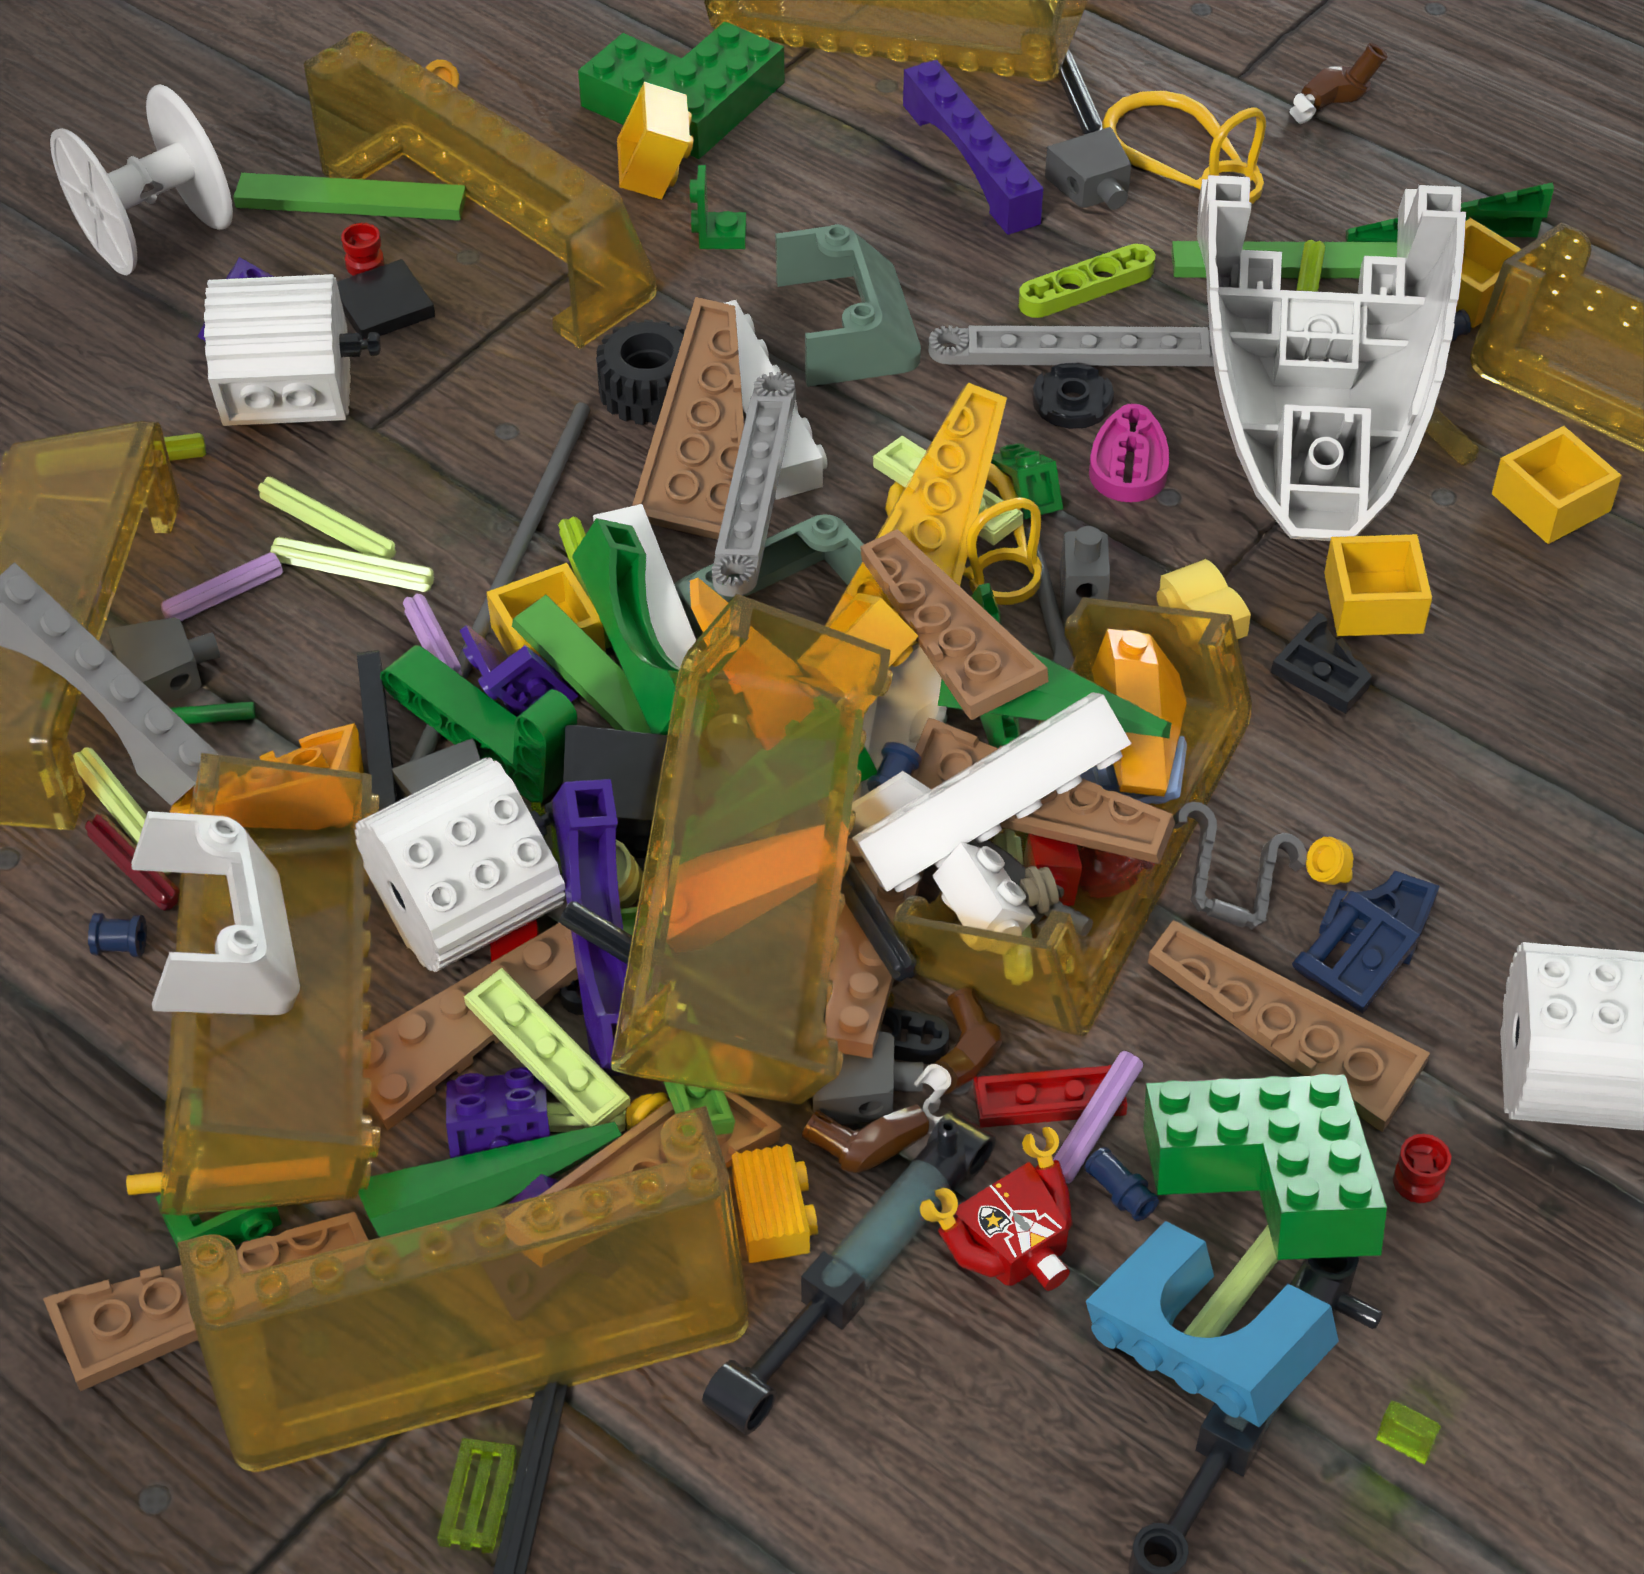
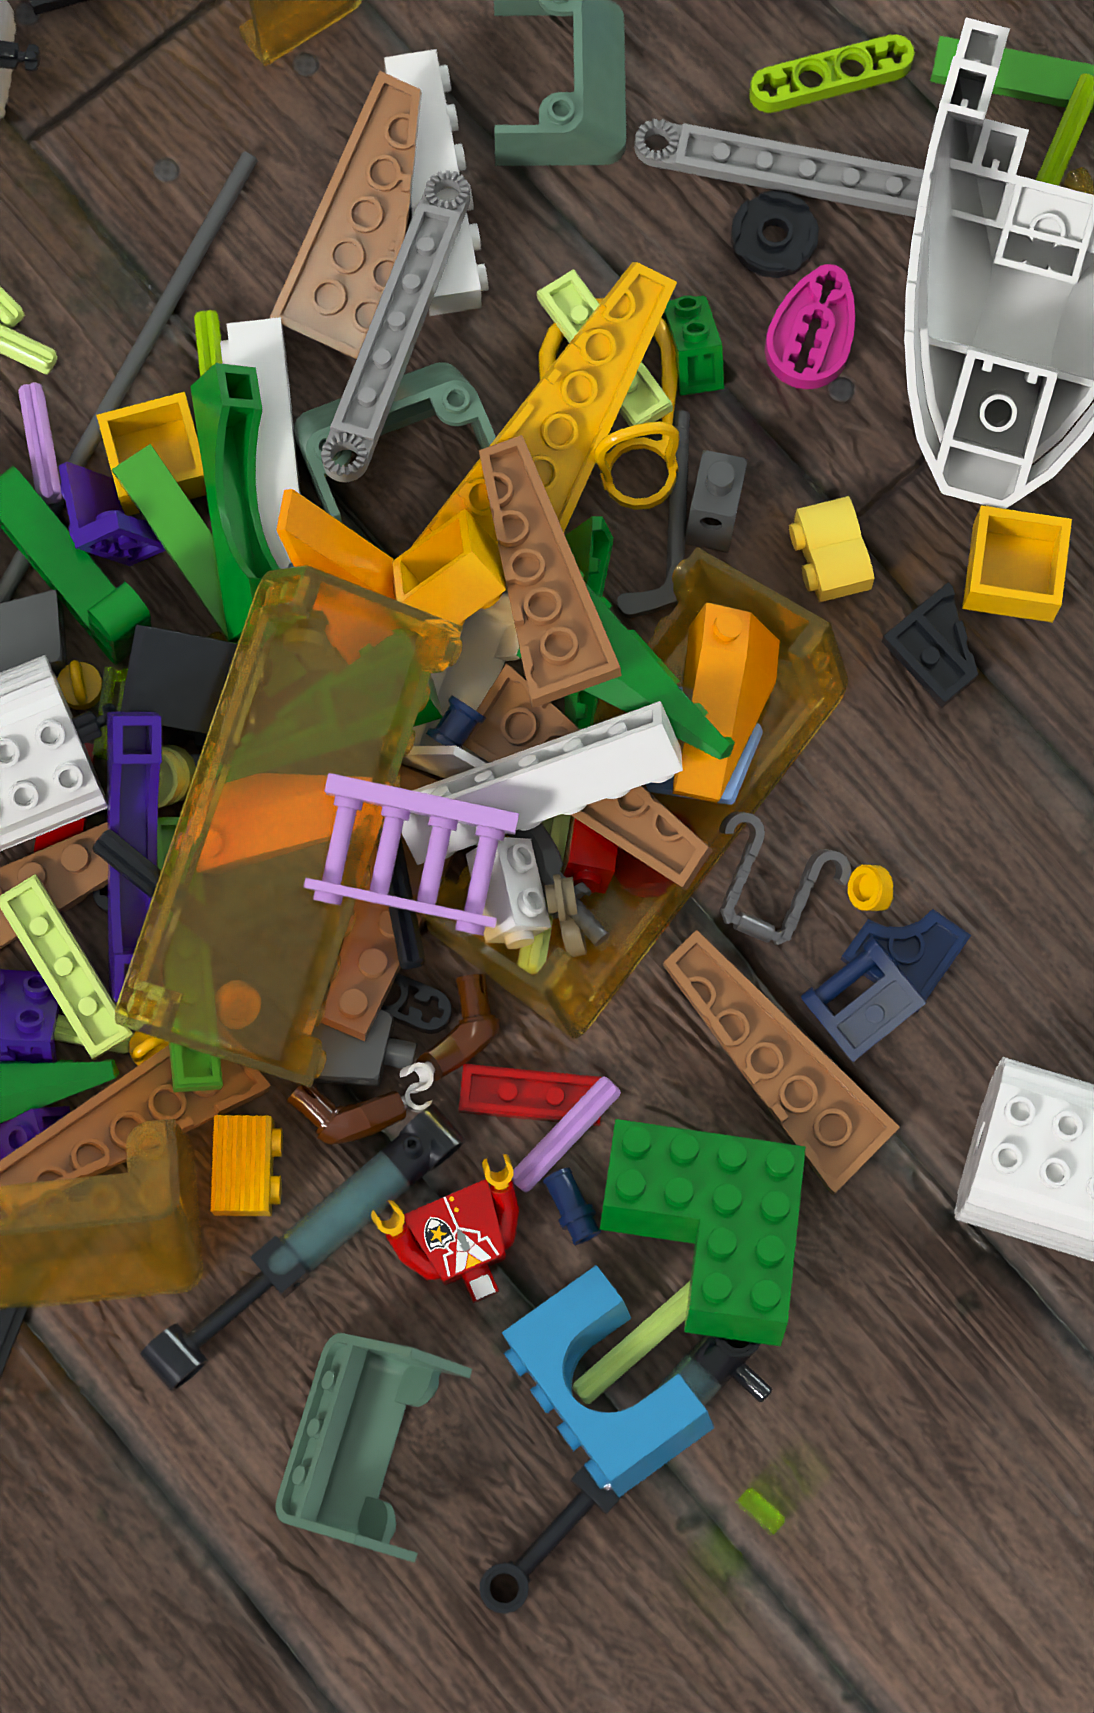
camera: 10 degrees right, 25 degrees up
(637, 368) = (302, 102): black tyre -> none
(897, 810) = (443, 817): none -> lavender fence
(948, 1431) = (350, 1437): none -> sand green windscreen
(1422, 1168) = (862, 1244): red wheel -> none

